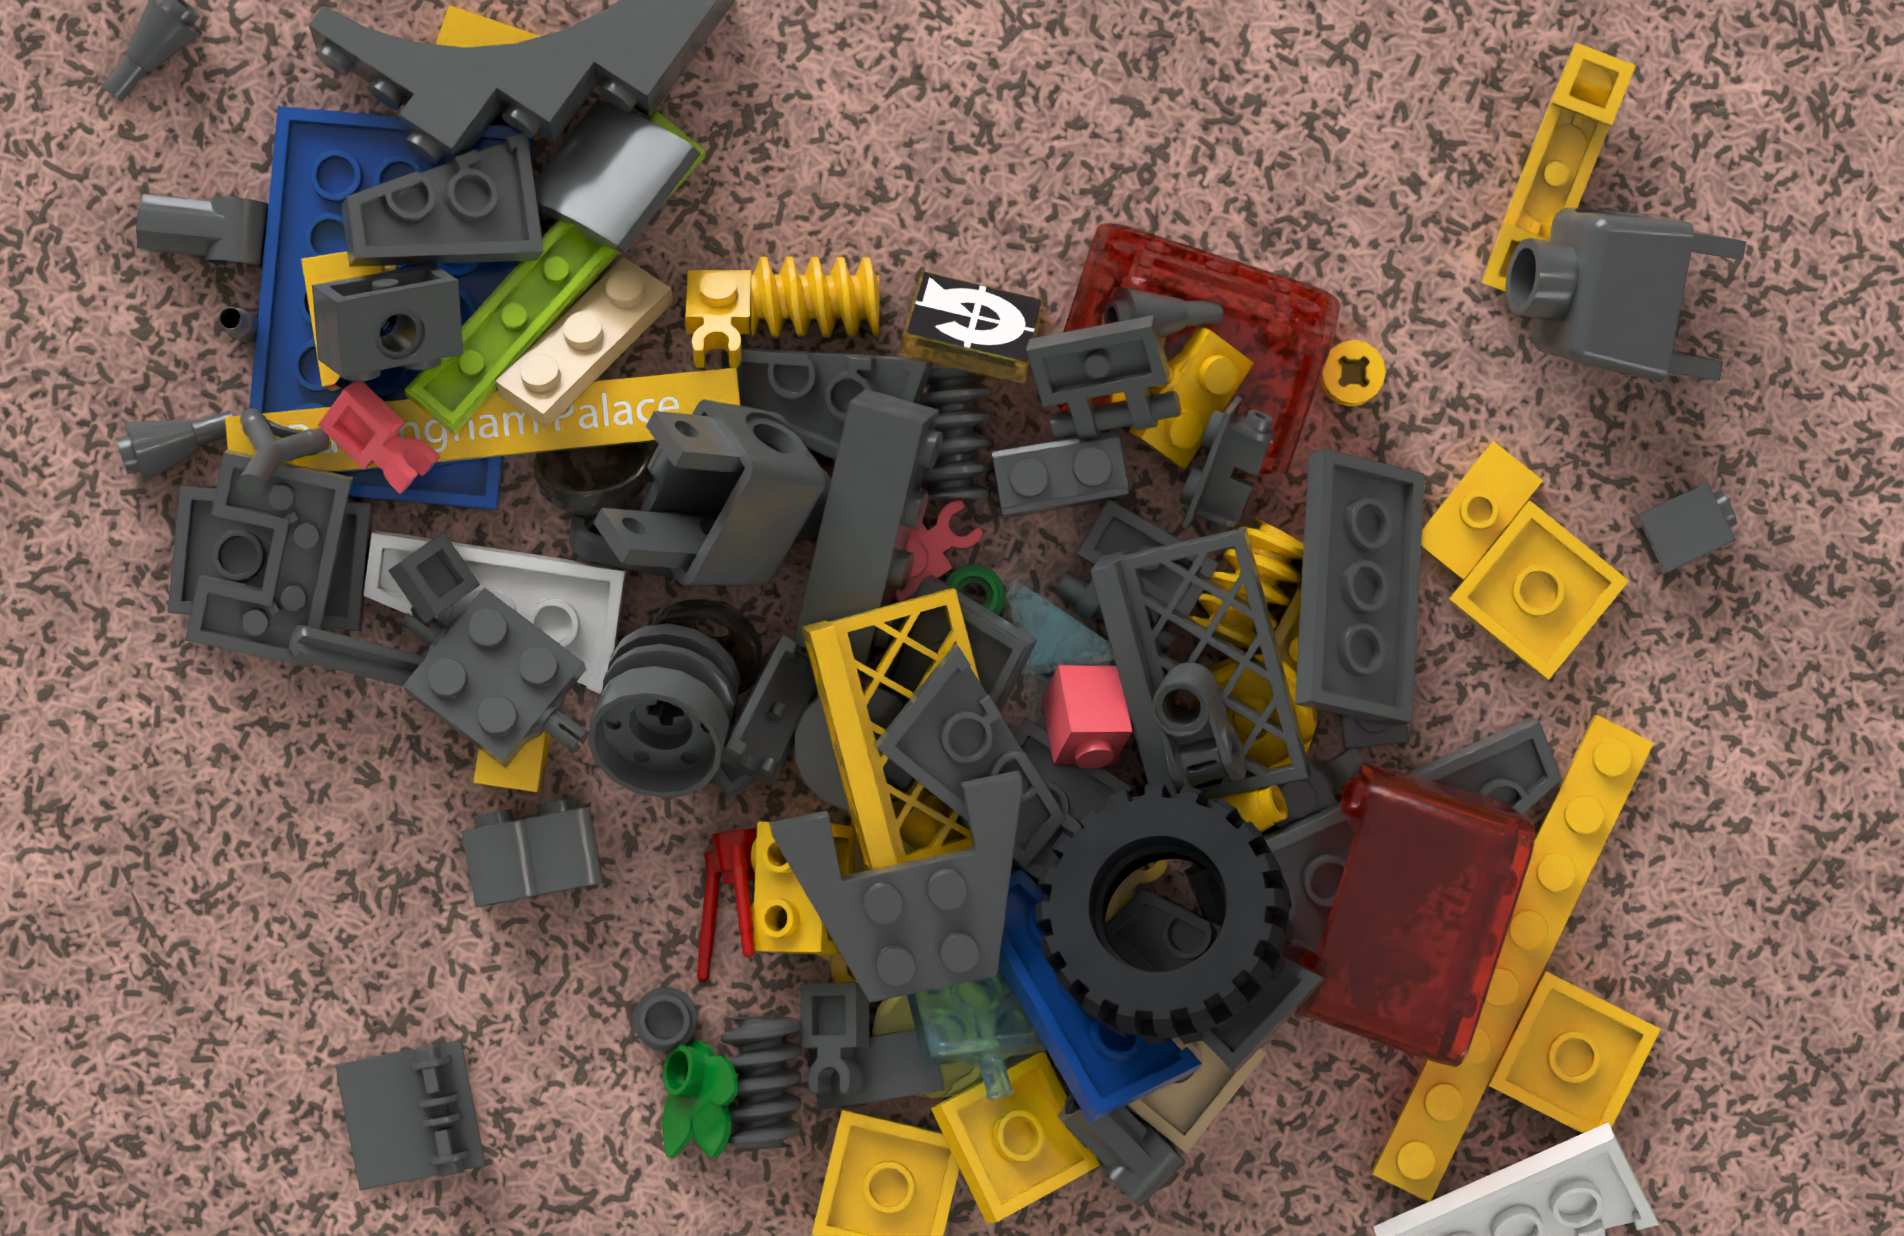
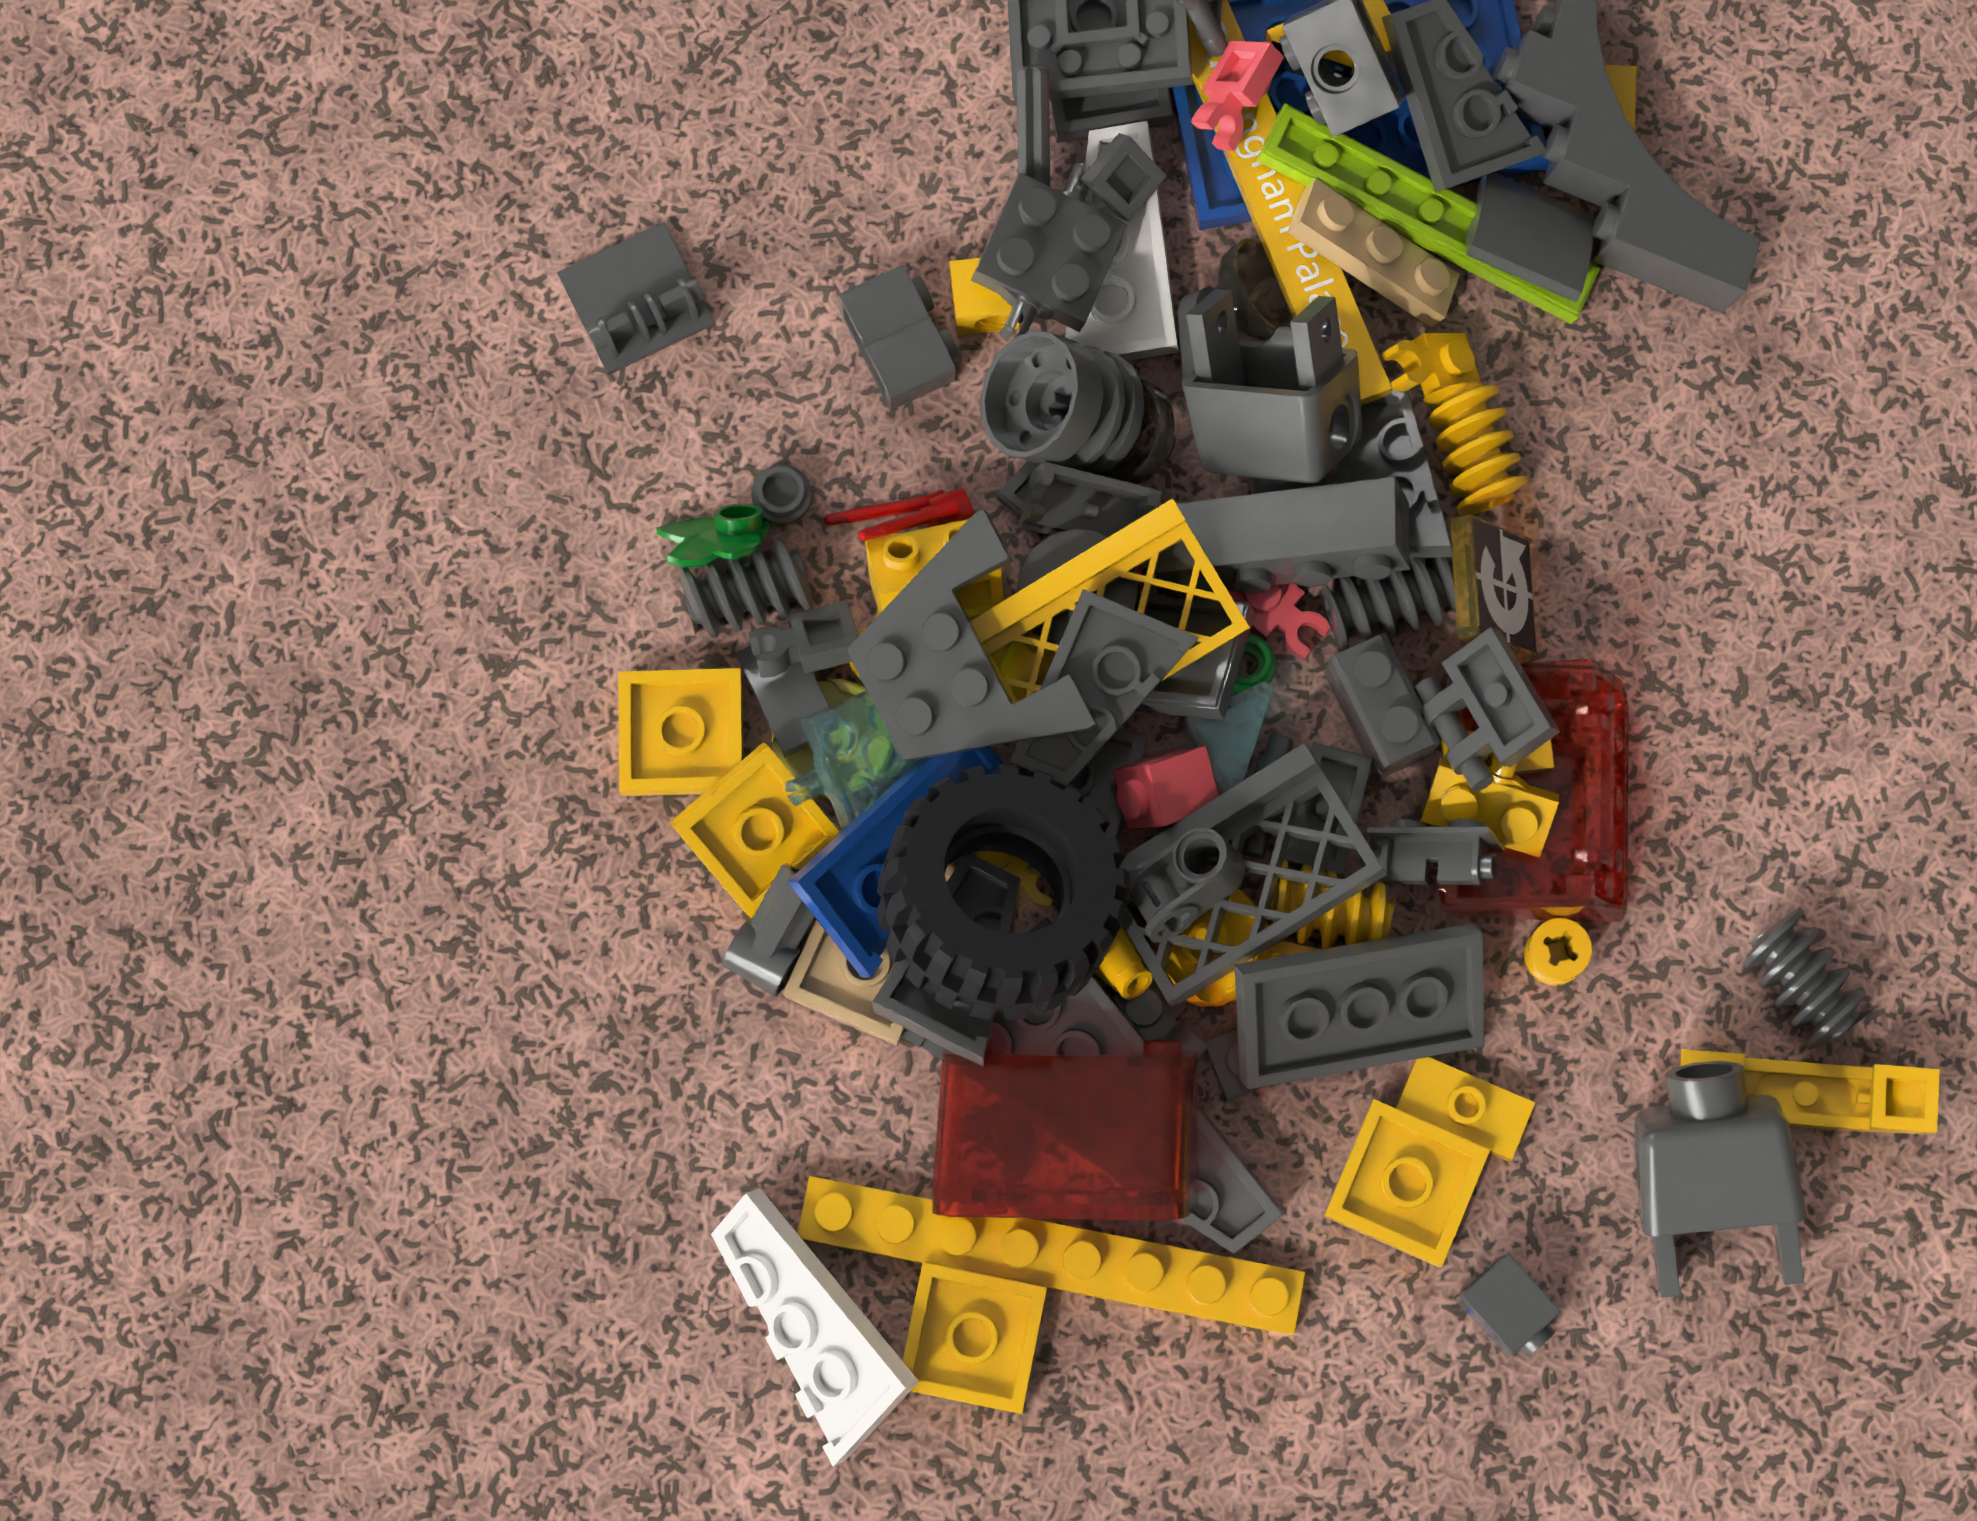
camera: 75 degrees right, 10 degrees down
(1170, 313) = (1561, 756): dark grey cone -> none
(1447, 139) = (1806, 980): none -> dark grey piece

